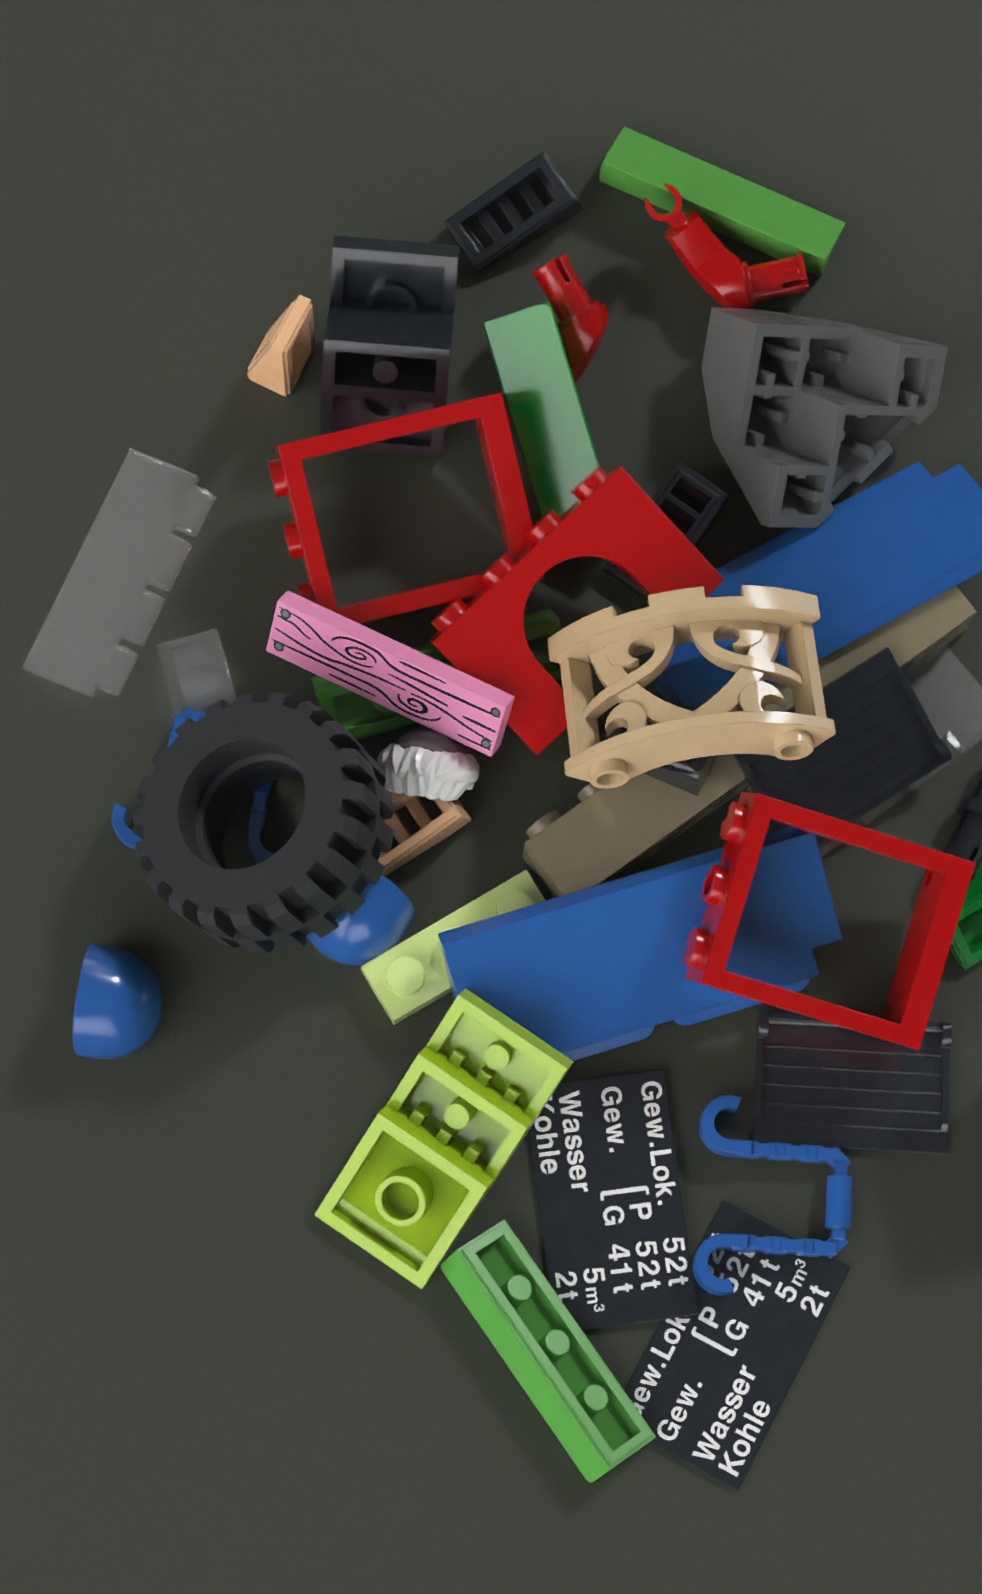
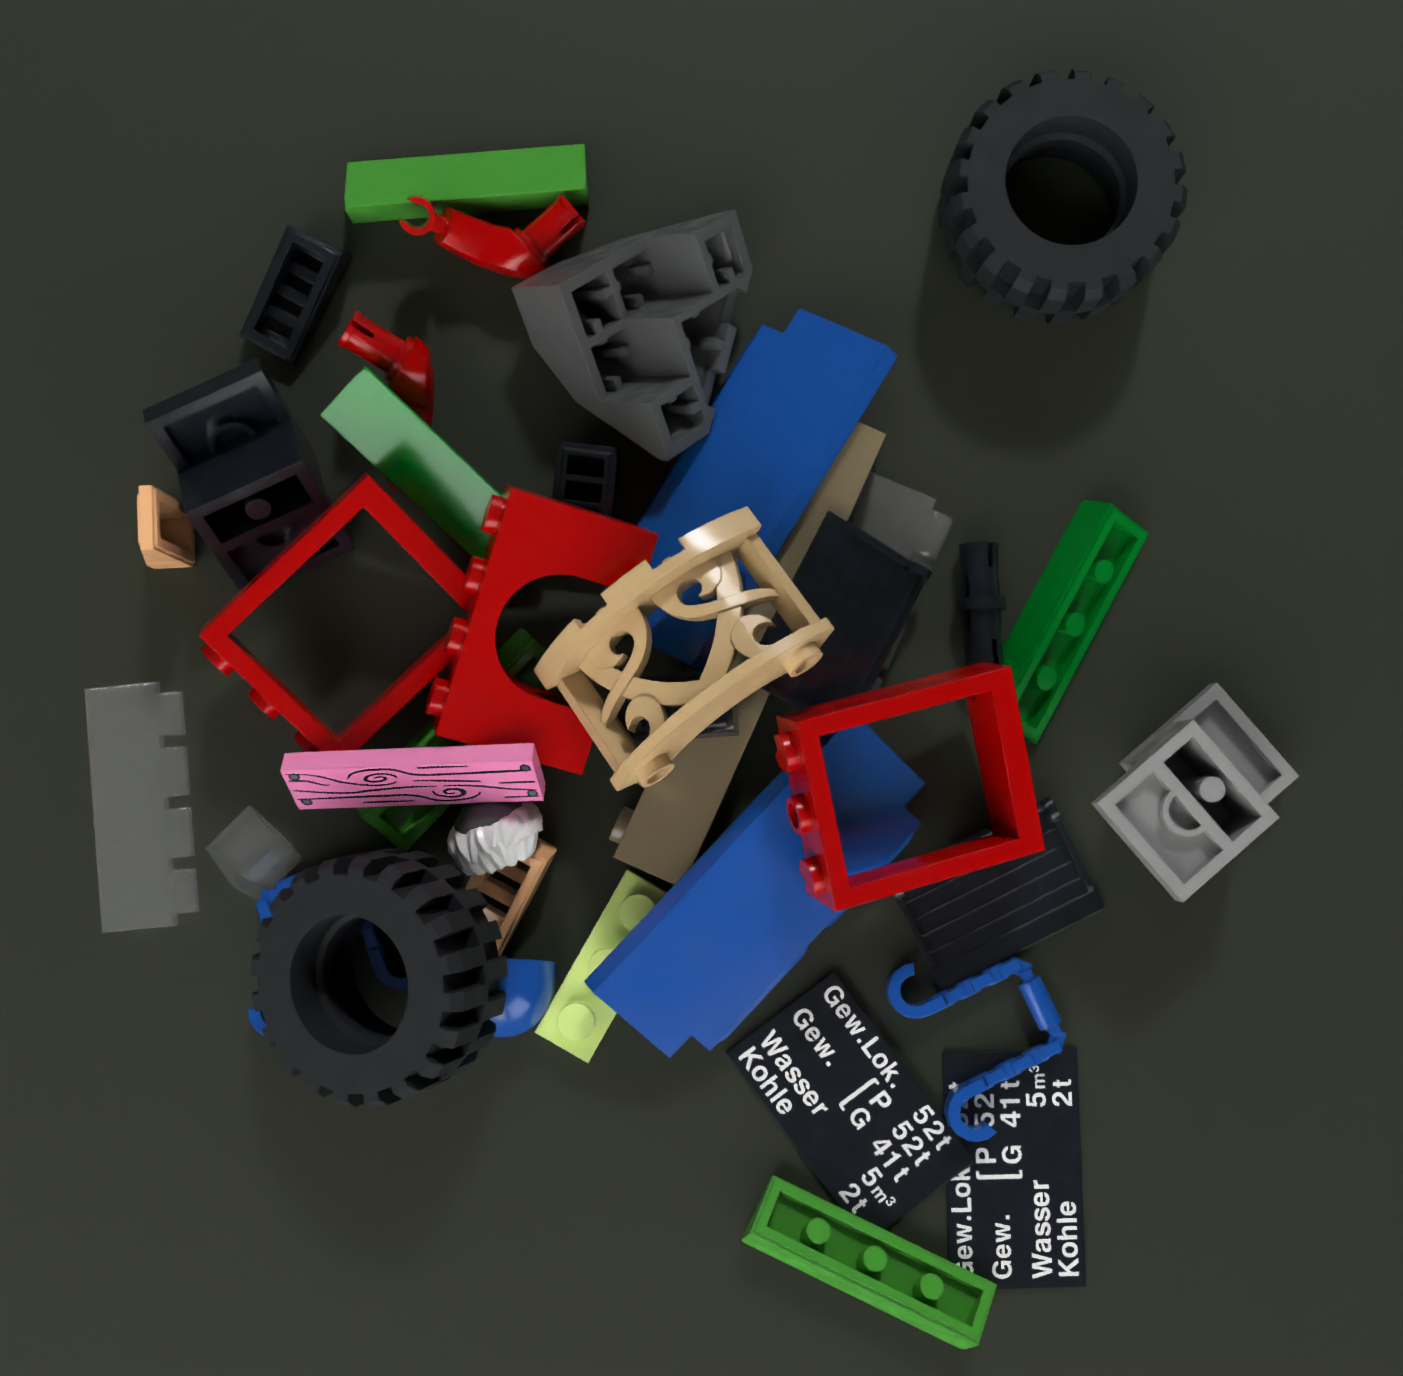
camera: 25 degrees left, 10 degrees up
(115, 1003) = (342, 1181): blue helmet -> none
(443, 1138) = (686, 1142): lime slope -> none

